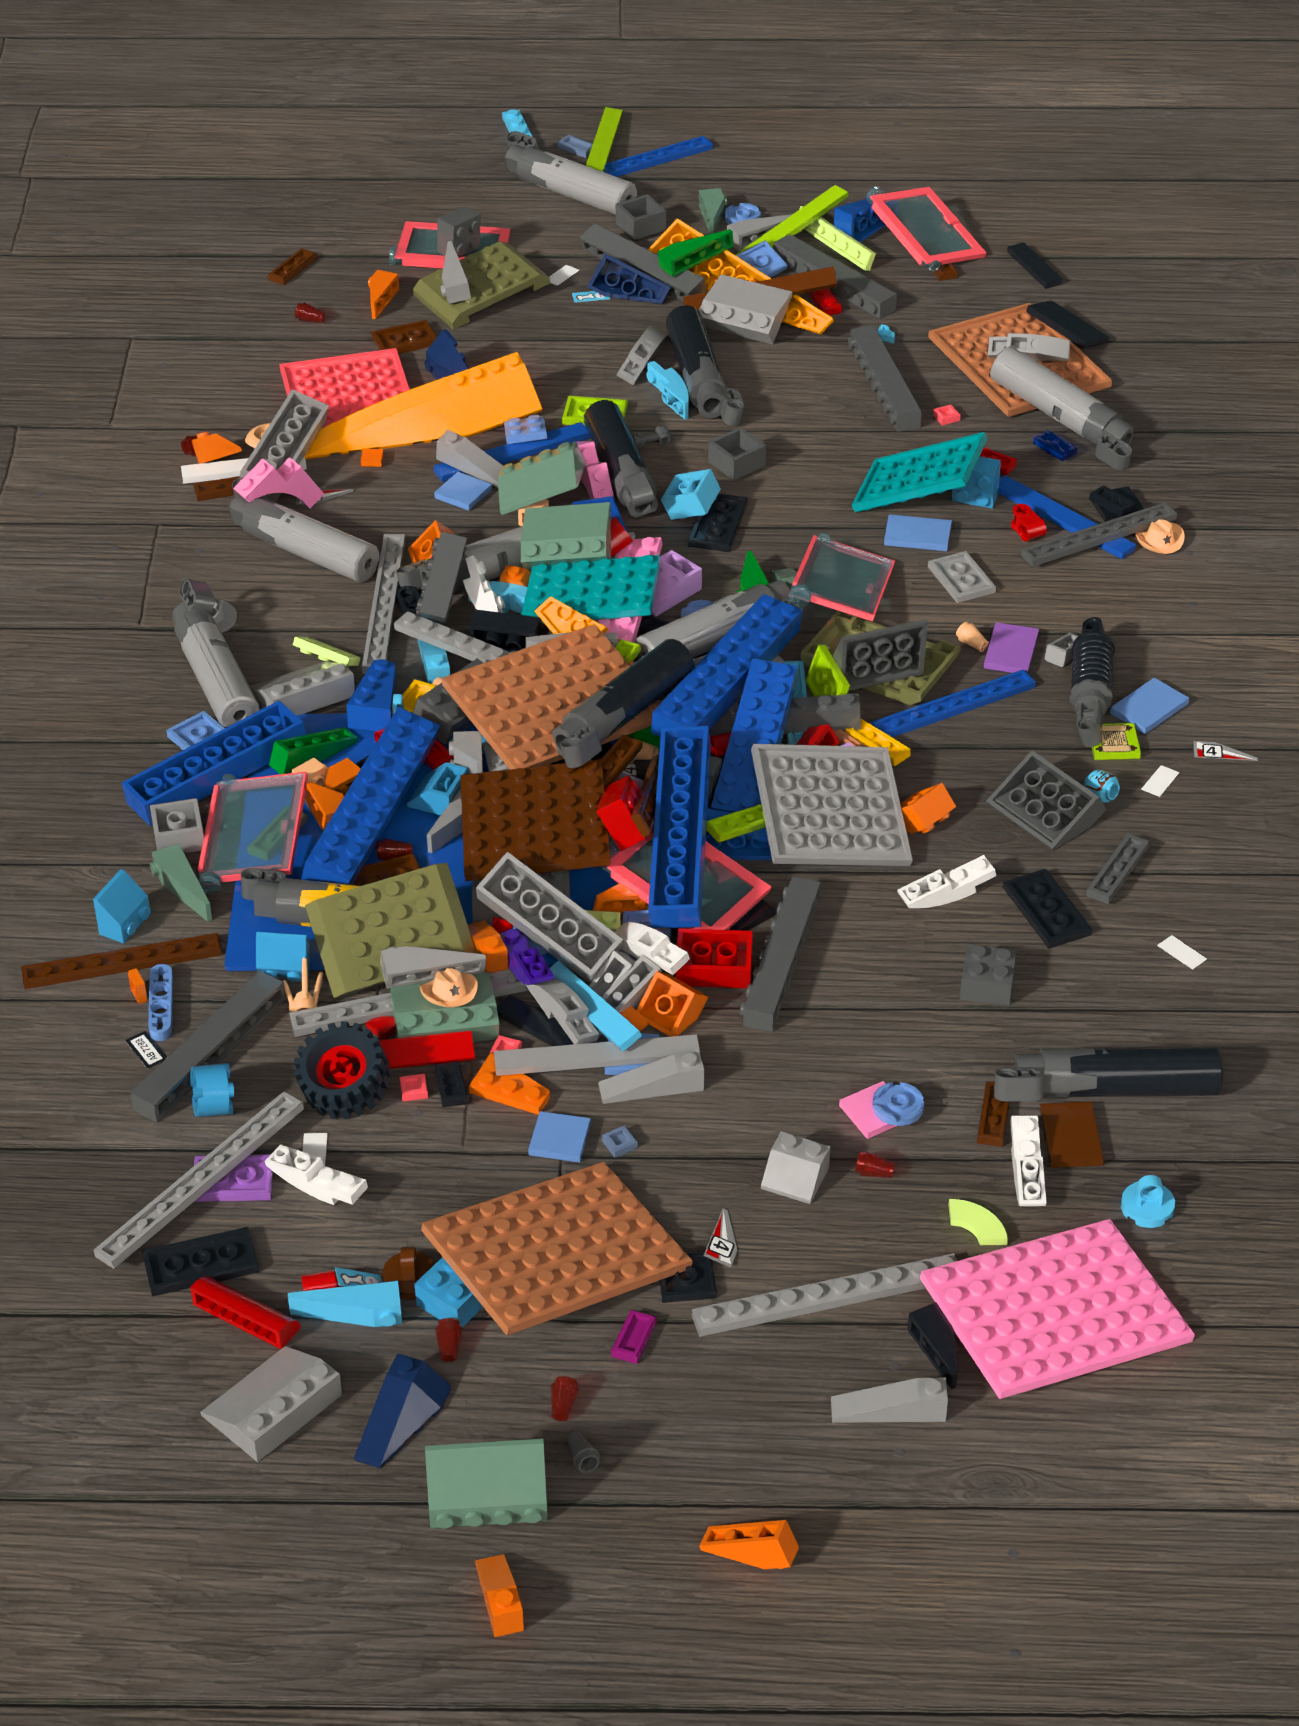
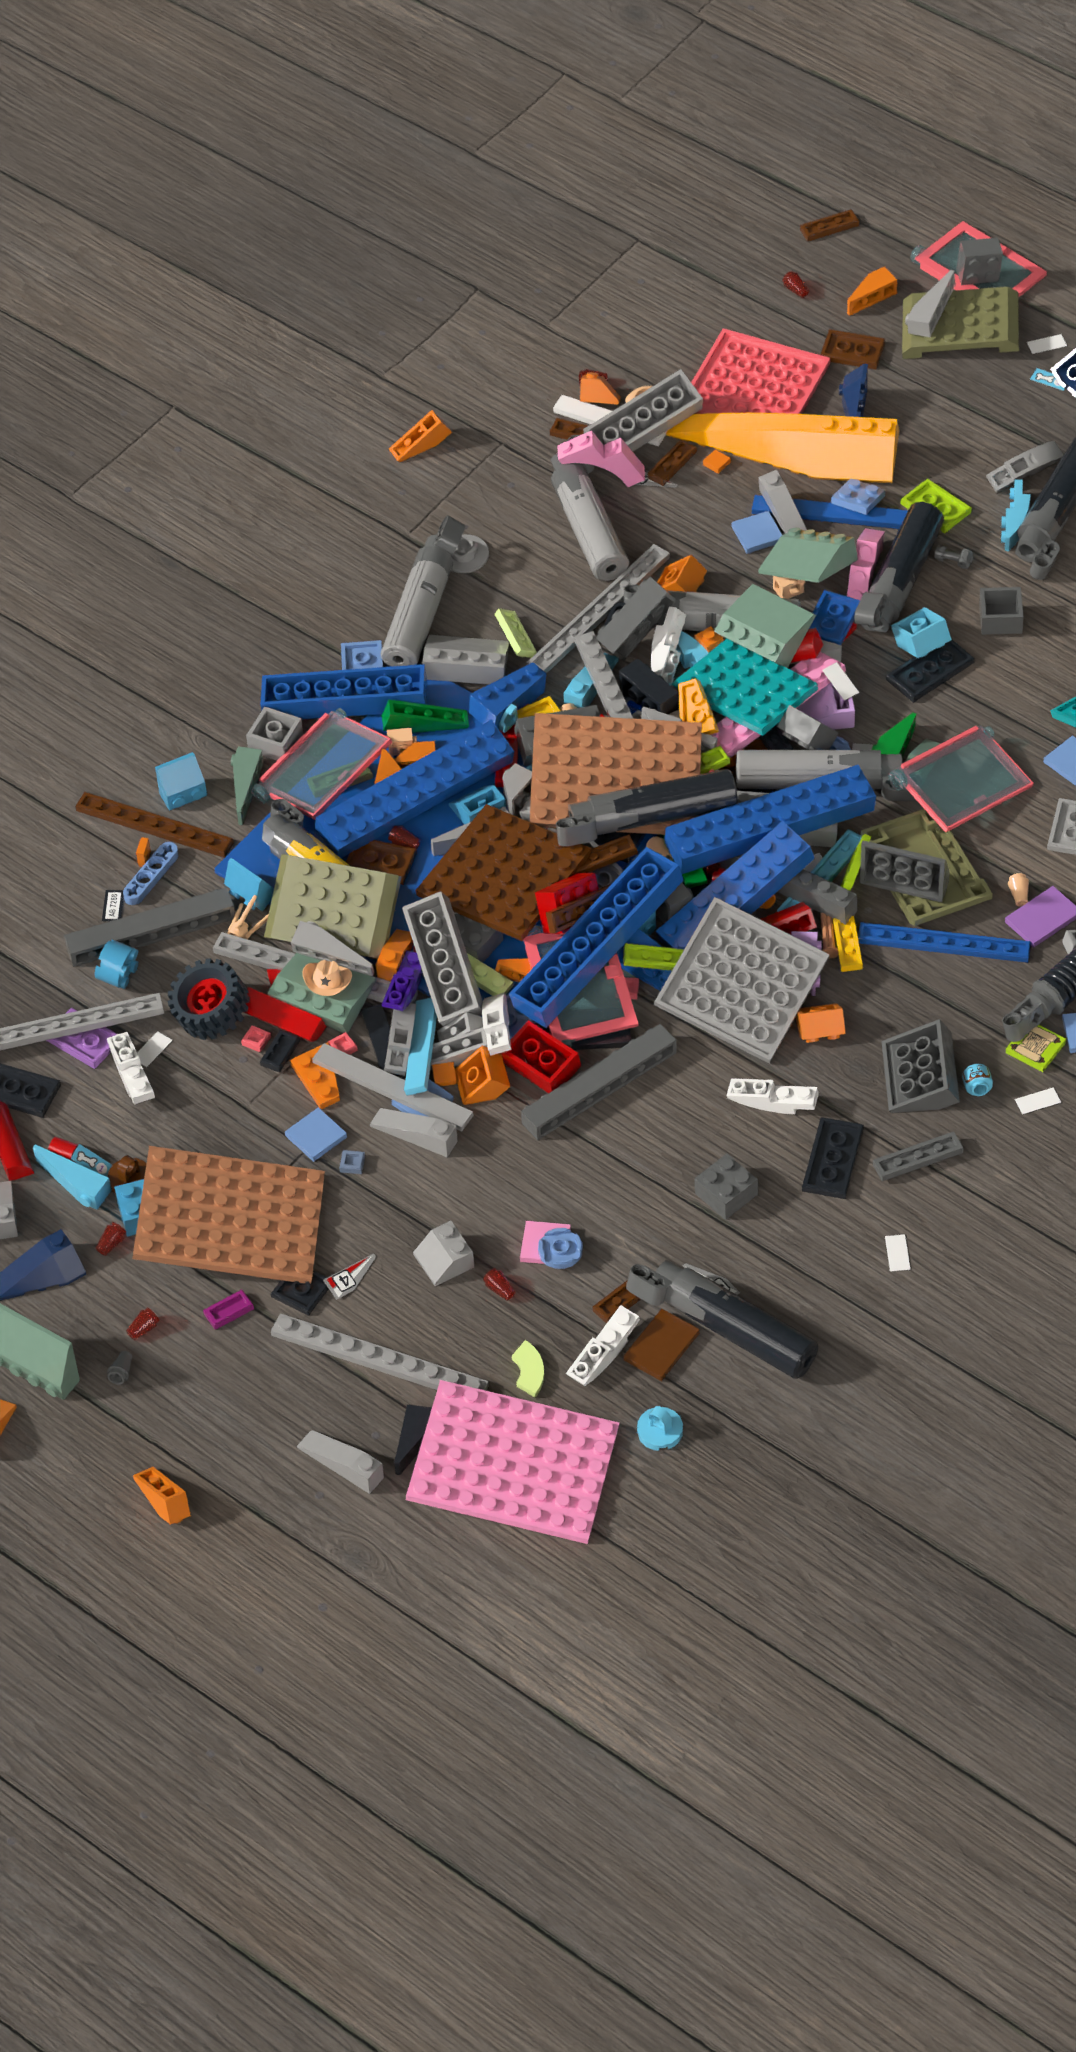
camera: 40 degrees right, 10 degrees up
(81, 546) = (423, 436): none -> orange slope
(333, 474) = (672, 462): none -> reddish brown tile
(669, 550) = (840, 681): none -> white sticker
(678, 597) = (806, 730): none -> piece

